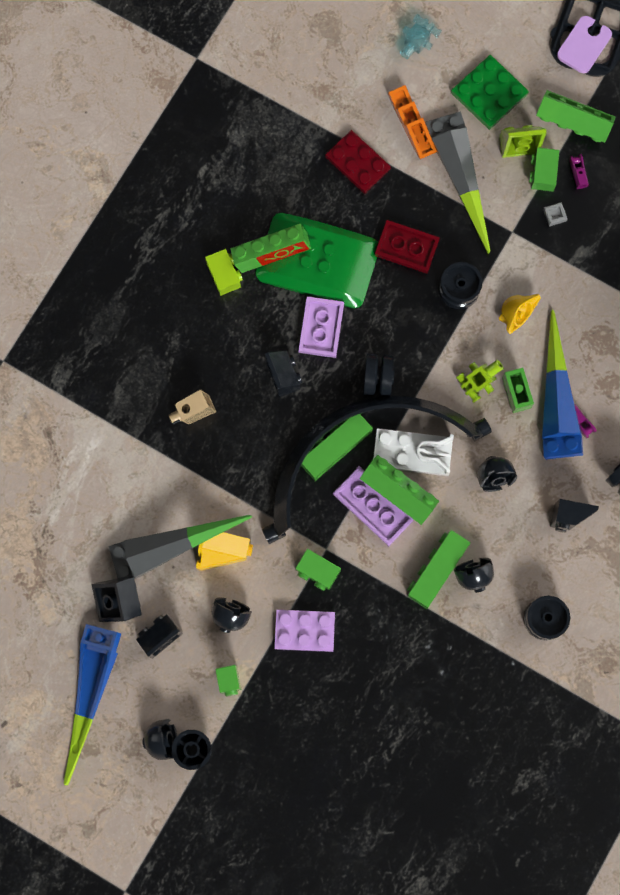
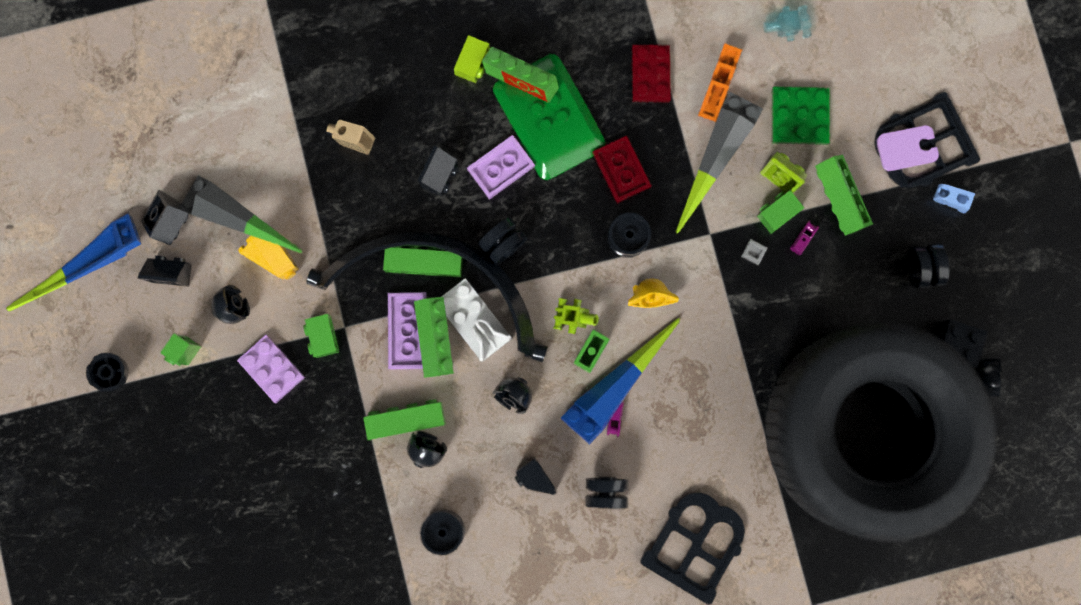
camera: 45 degrees right, 5 degrees up
(159, 739) = (94, 342): black cylinder -> none

